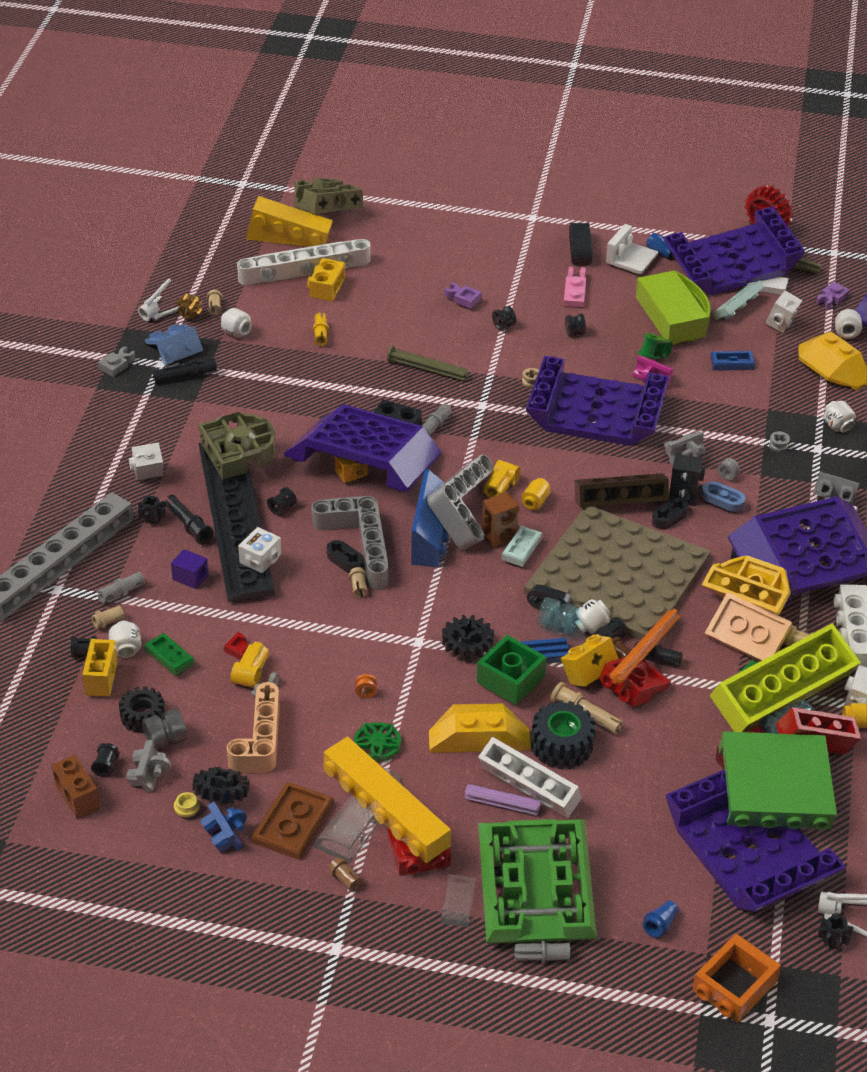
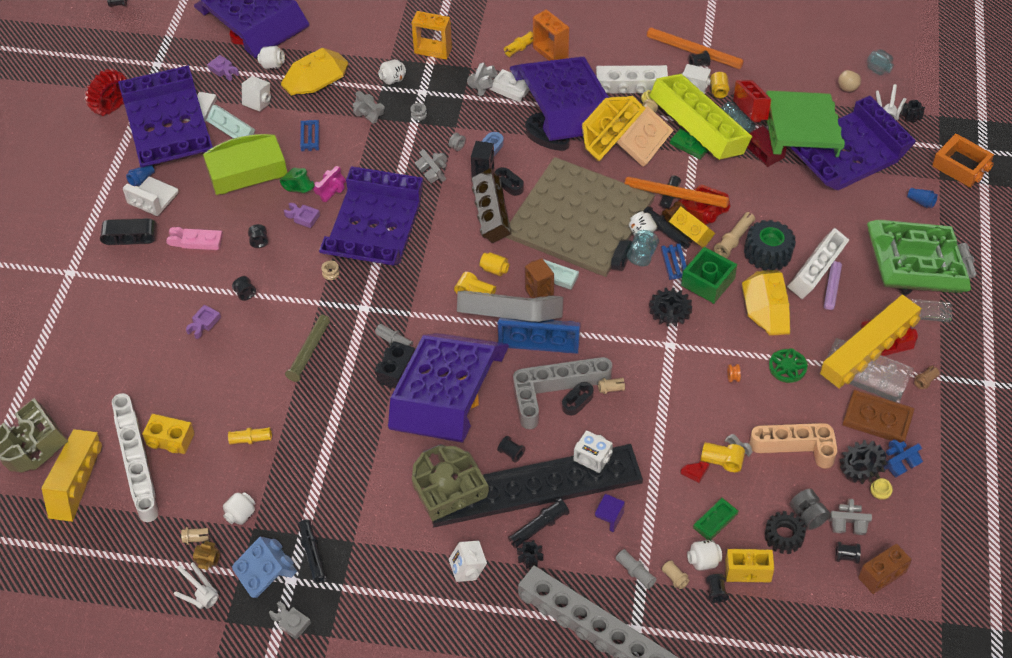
camera: 90 degrees left, 10 degrees up
(607, 356) = (304, 216): none -> medium lavender plate
(775, 395) = (365, 106): none -> light grey hips

